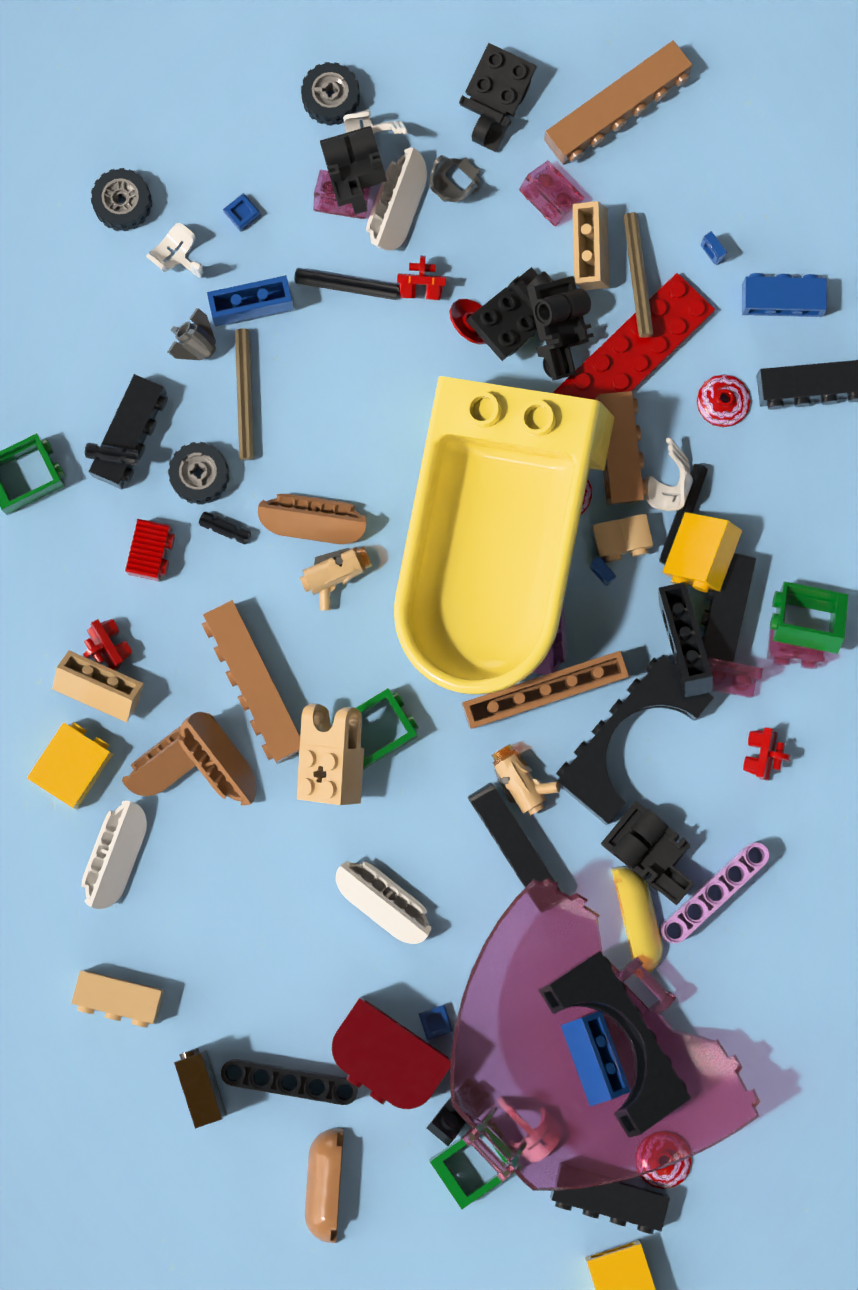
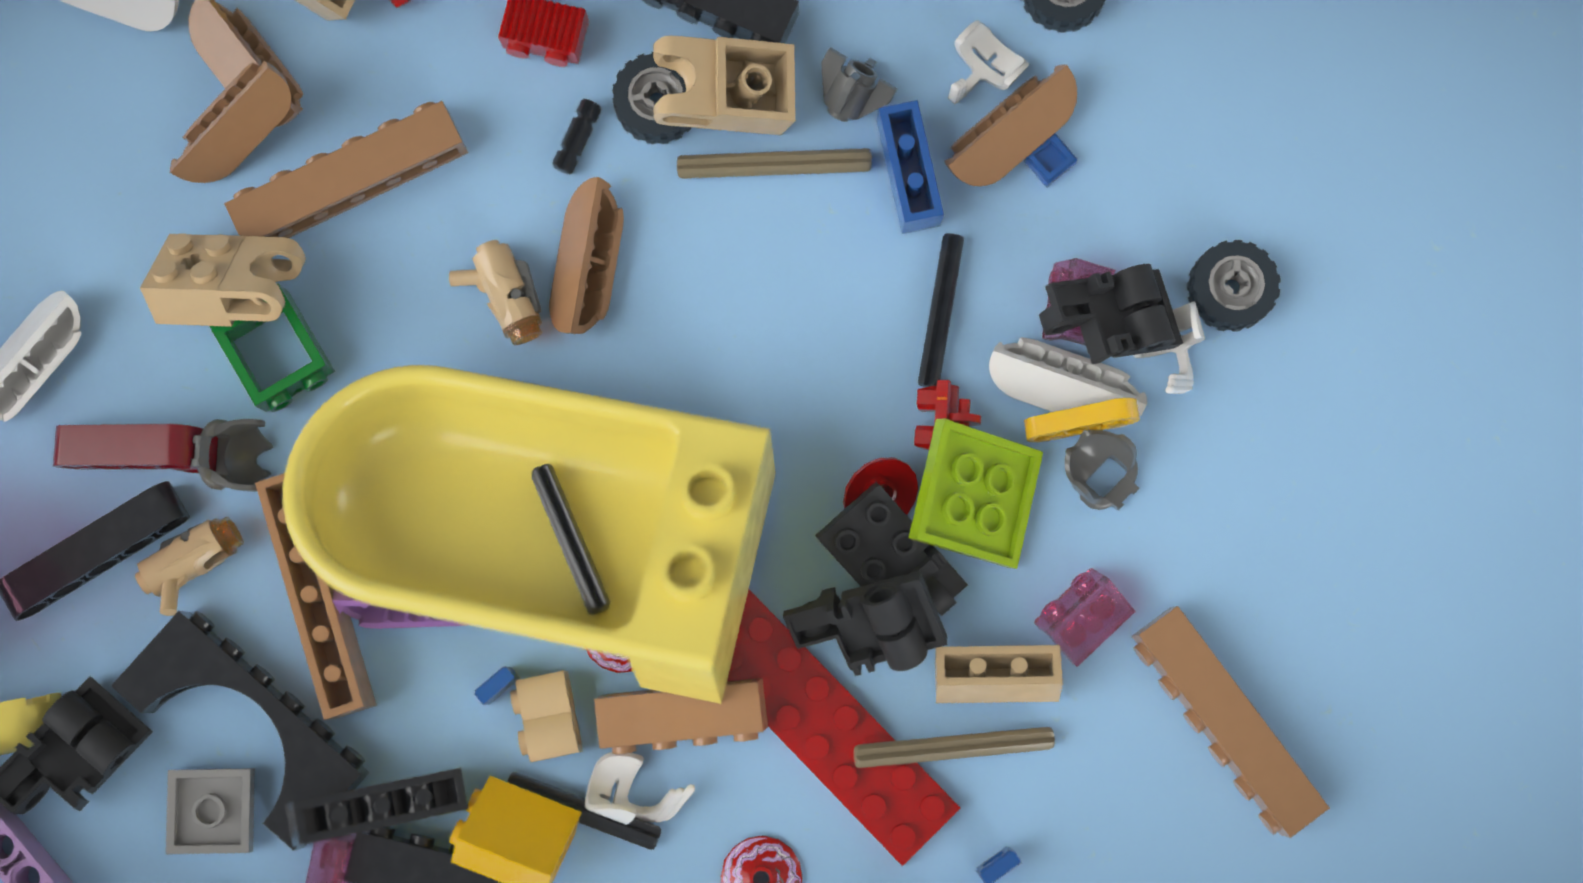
camera: 90 degrees right, 0 degrees up
(193, 417) = (717, 84): none -> tan brick
(221, 234) = (1014, 128): none -> medium nougat brick
(423, 190) = (1077, 419): none -> yellow beam
(445, 820) = (128, 447): none -> beam
(450, 754) = (237, 454): none -> dark grey helmet
(473, 257) = (976, 494): none -> lime plate
(496, 91) = (1241, 532): black plate -> none
(508, 514) = (570, 539): none -> axle
(688, 759) = (210, 811): none -> light grey plate

